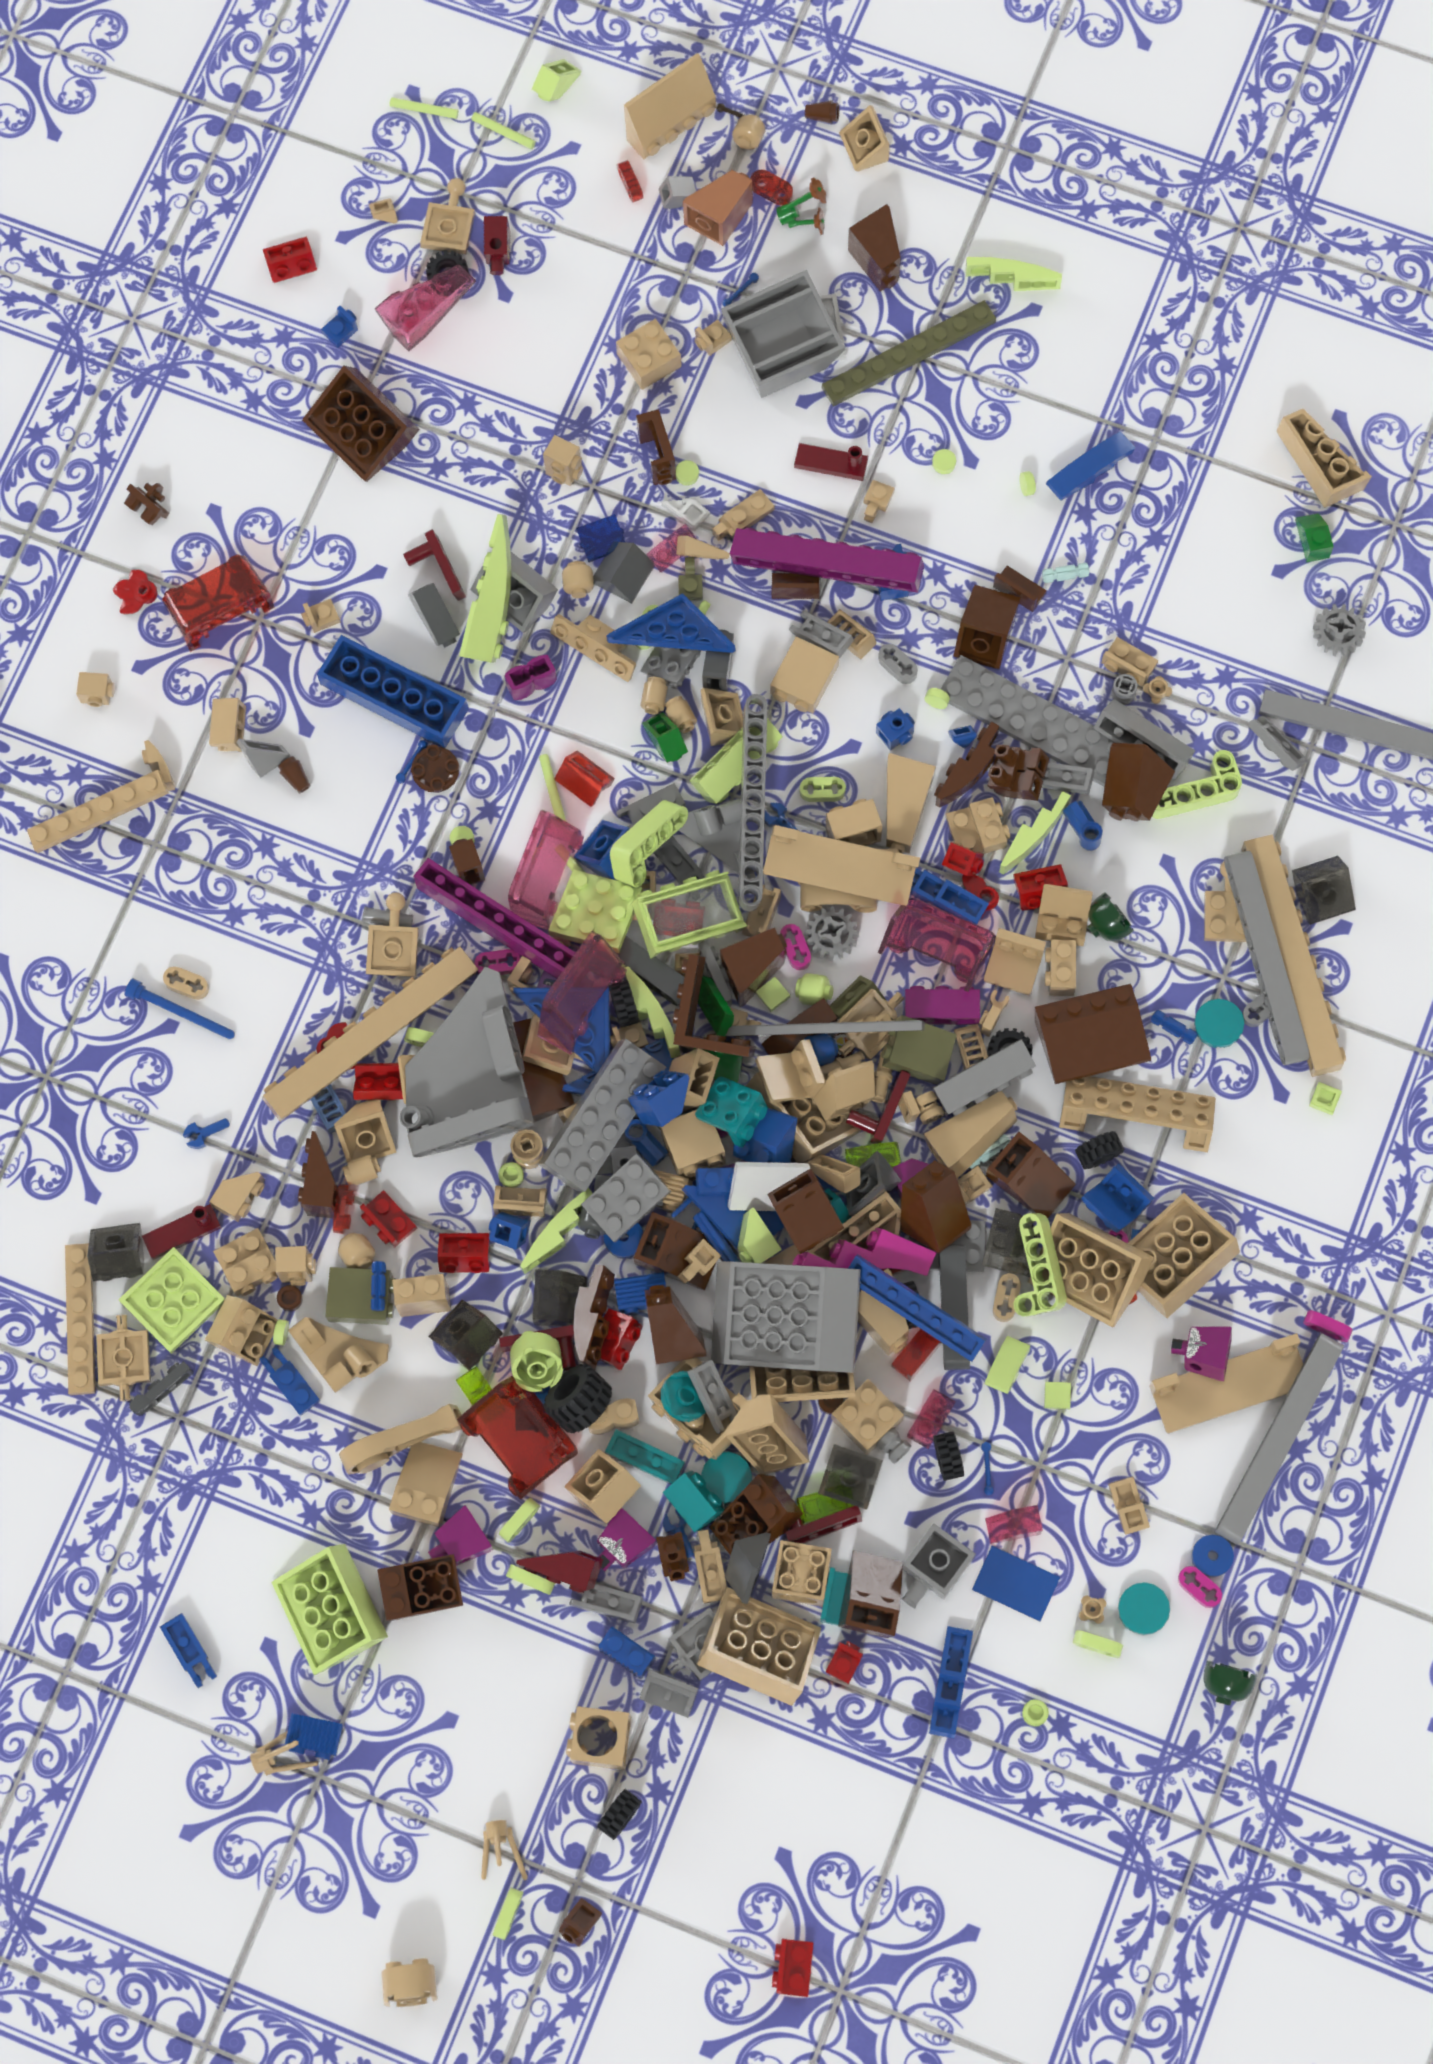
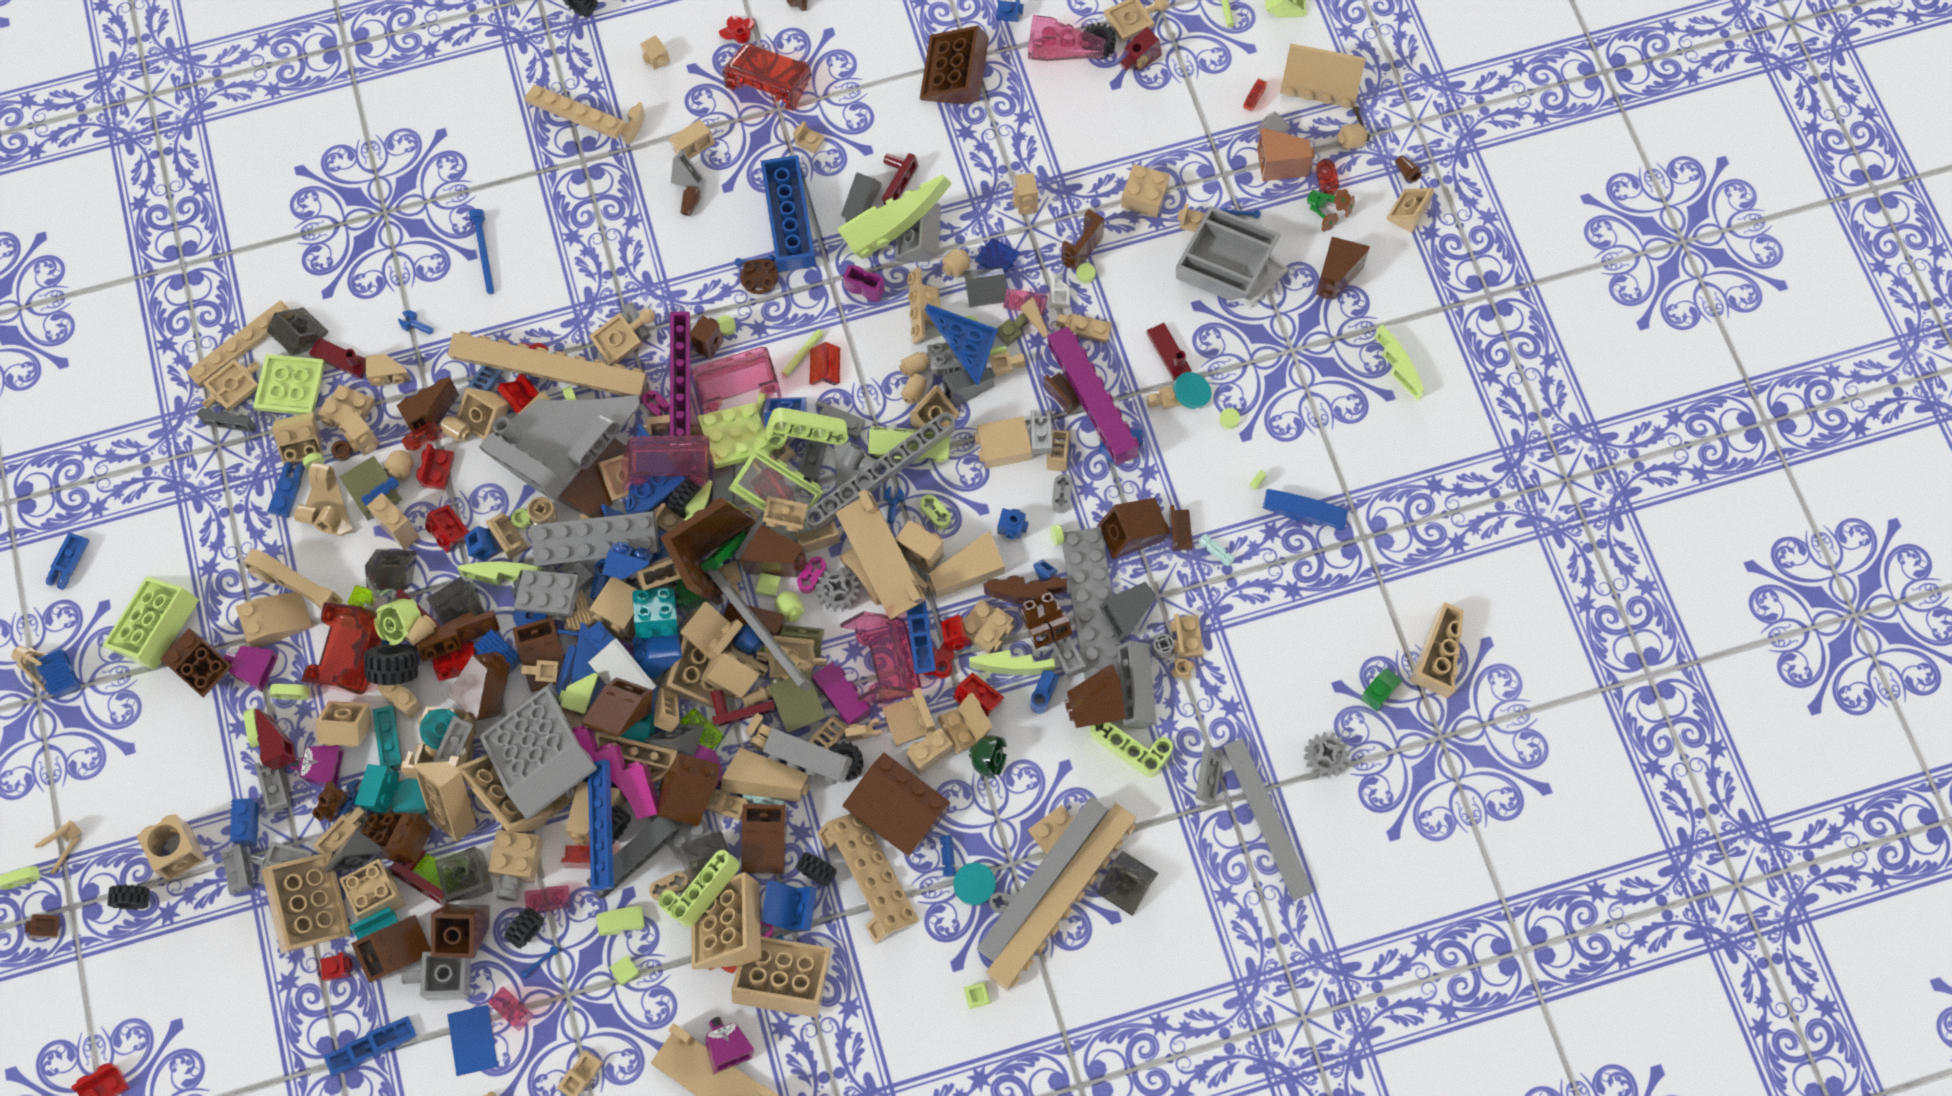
camera: 50 degrees right, 5 degrees down
(184, 988) = (500, 243): tan beam -> none
(497, 1367) = (379, 600): none -> light grey plant
(566, 1343) = (422, 628): none -> tan cone
(665, 737) = (889, 391): green slope -> none
(722, 614) = (1003, 363): none -> tan plate
(724, 921) = (785, 513): none -> tan bracket
(891, 471) = (1192, 390): none -> teal tile
(907, 1515) = (459, 930): none -> reddish brown slope
(908, 353) = (1287, 342): olive plate -> none
(1066, 691) = (1127, 608): none -> dark grey slope

